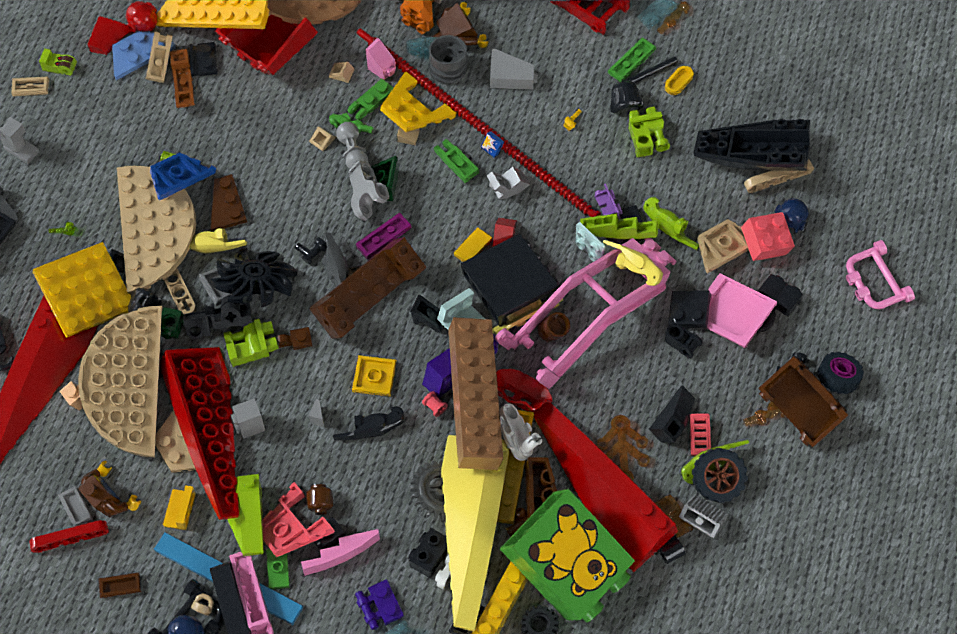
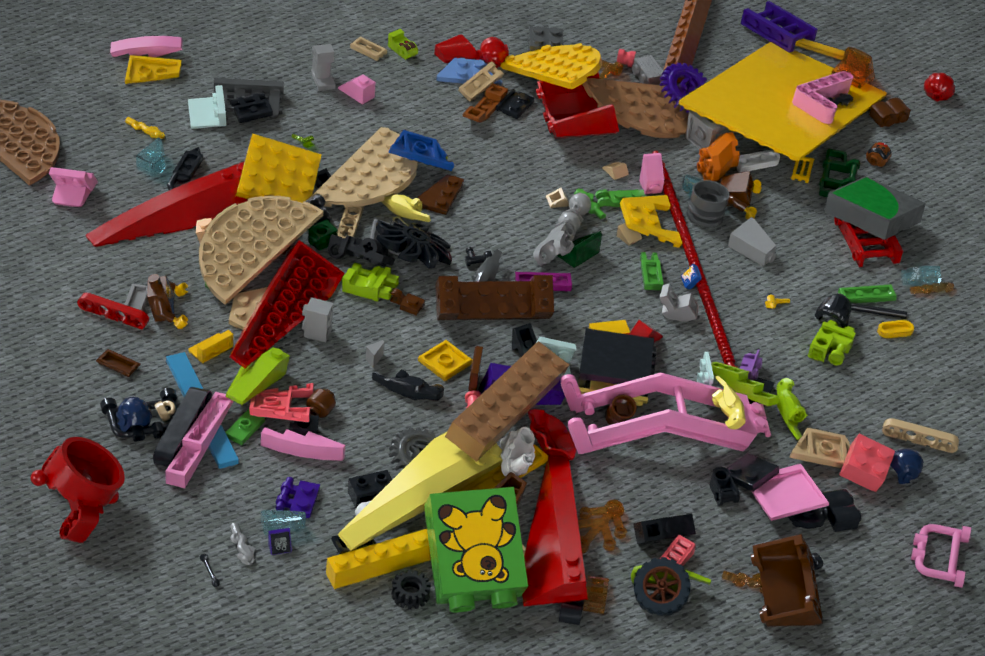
camera: 30 degrees right, 20 degrees down
(62, 138) = (359, 88): none -> bright pink slope
(415, 375) = (475, 369): none -> reddish brown tile
(703, 516) = (621, 606): light grey brick -> none
(758, 145) = (920, 403): black wedge -> none
(840, 372) = (841, 589): black wheel -> none

